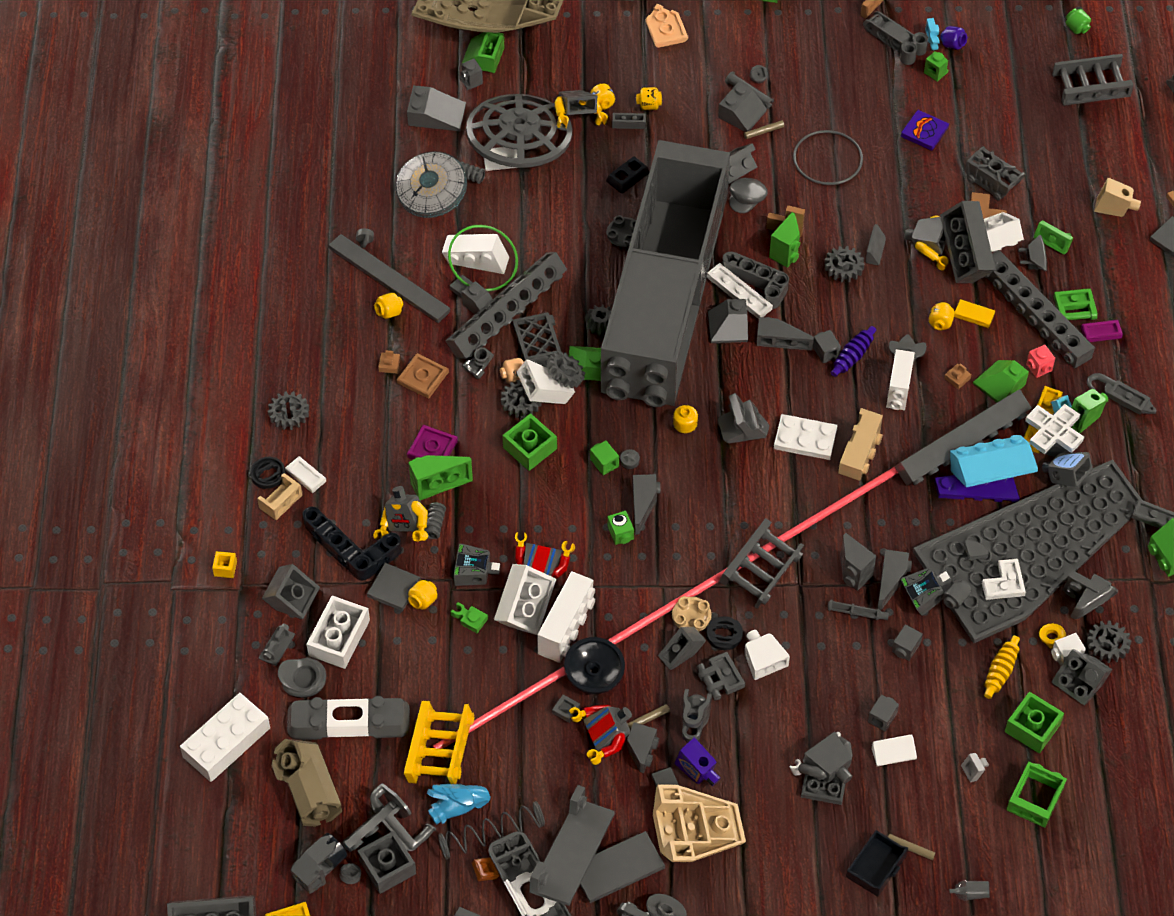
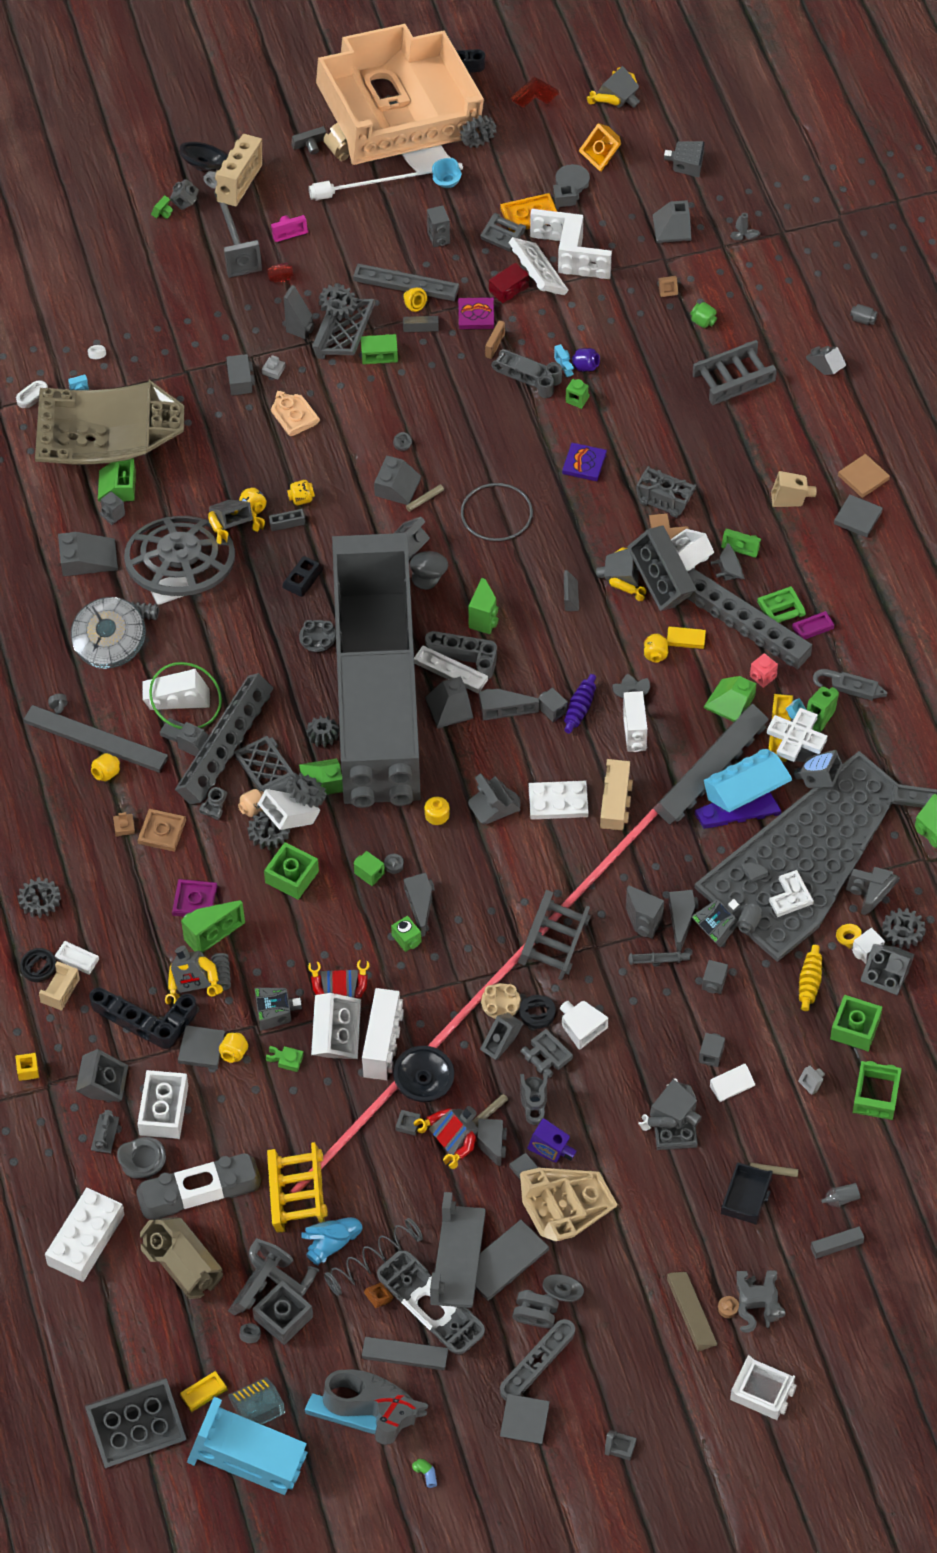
camera: 15 degrees left, 0 degrees up
(318, 862) = (213, 1336): dark grey piece -> none
(733, 80) = (381, 454): dark grey pin -> none
(776, 220) = (467, 590): medium nougat tile -> none
(844, 264) = (545, 617): dark grey gear -> none
(958, 376) = (688, 704): medium nougat tile -> none

